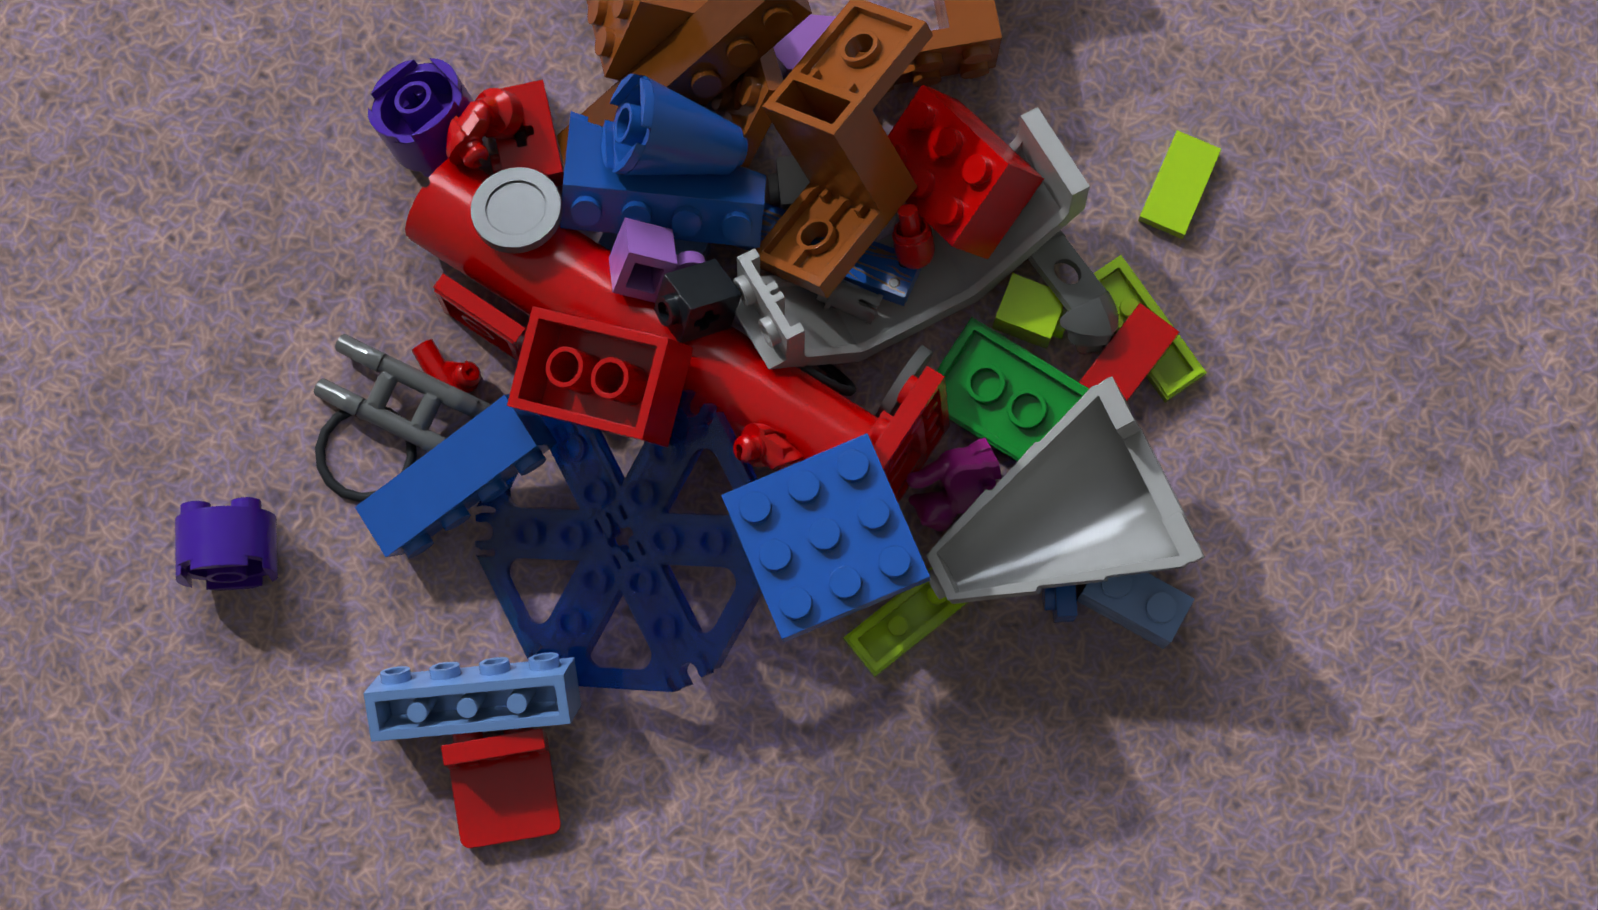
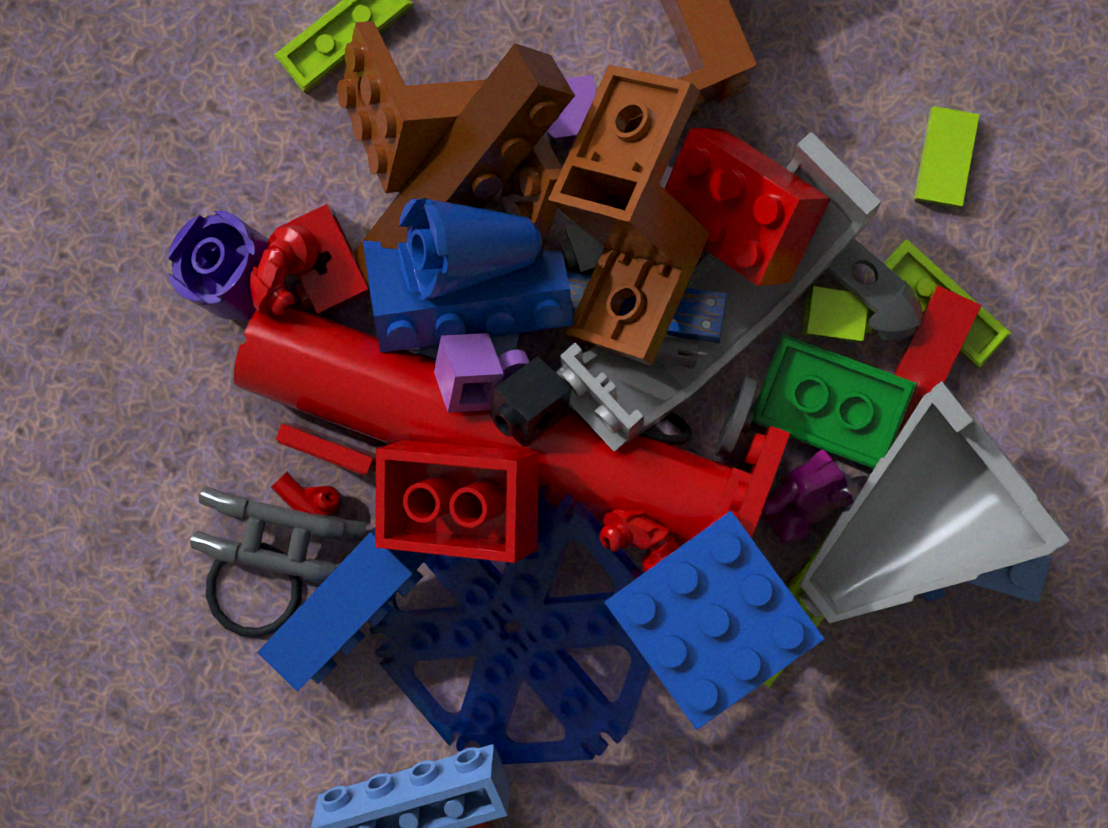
camera: 10 degrees left, 10 degrees up
(226, 544) = (147, 717): dark purple brick -> none
(516, 210) = (335, 350): piece -> none
(913, 239) = (716, 282): red cylinder -> none

